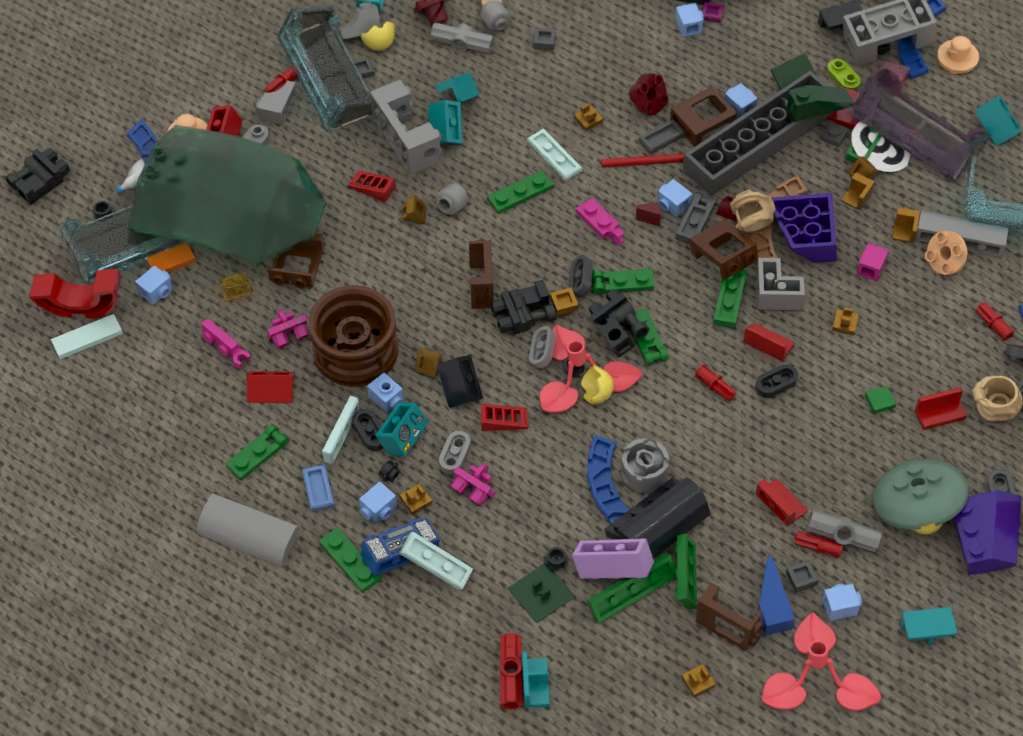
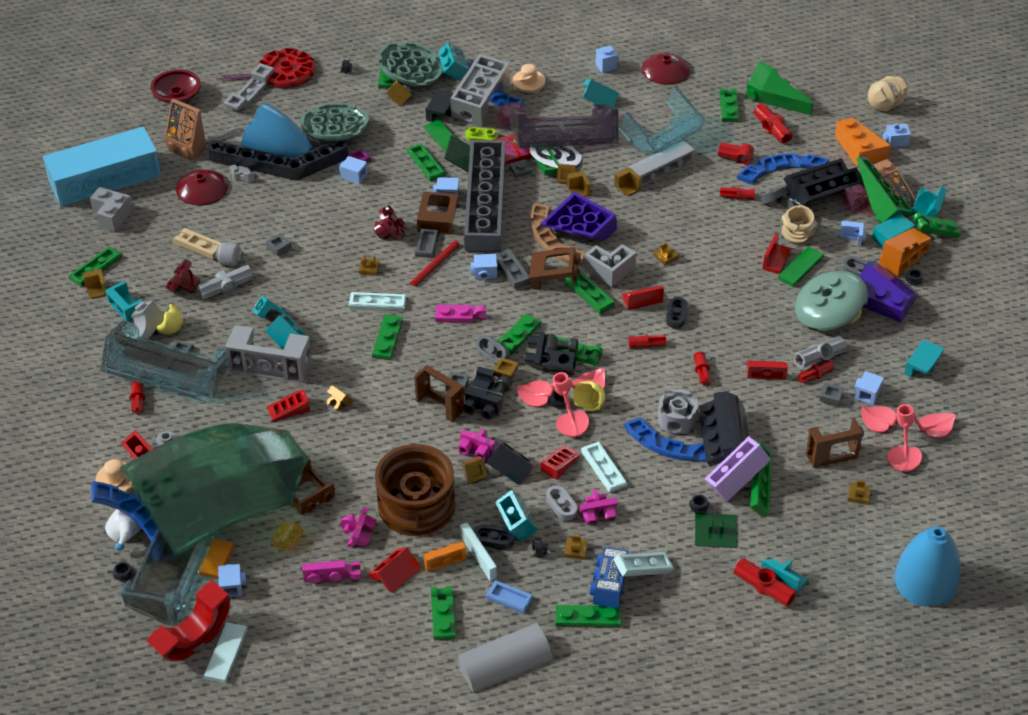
camera: 50 degrees left, 10 degrees down
(42, 175) = (41, 583): black hips -> none
(276, 105) = (156, 413): light grey arch -> none
(319, 412) = (445, 556): none -> orange plate
(377, 503) = (561, 569): light blue brick -> none
(385, 392) = (475, 507): light blue brick -> none
(451, 199) = (354, 372): light grey head -> none
(455, 336) = (476, 441): none -> dark pink hips
(516, 278) = (459, 378): none -> dark grey plate
(530, 455) = (604, 467): none -> light aqua tile
(542, 347) = (528, 405): light grey plate -> none
(648, 213) = (483, 285): dark red slope -> none
(686, 571) = (775, 446): green plate -> none
(725, 210) = (521, 248): dark red slope -> none
(726, 449) = (702, 368): none -> red axle
(752, 210) = (545, 234): tan helmet -> none
(761, 61) = (425, 162): none -> green tile
(774, 604) = (832, 415): blue slope -> none
(811, 43) = (439, 133): none -> green tile
(816, 101) = (500, 151): dark green slope -> none
(872, 262) = (638, 213): dark pink brick -> none
(880, 399) = (739, 277): green tile -> none
(946, 252) = (670, 176): light nougat plate -> none
(951, 440) = (800, 266): none -> green tile

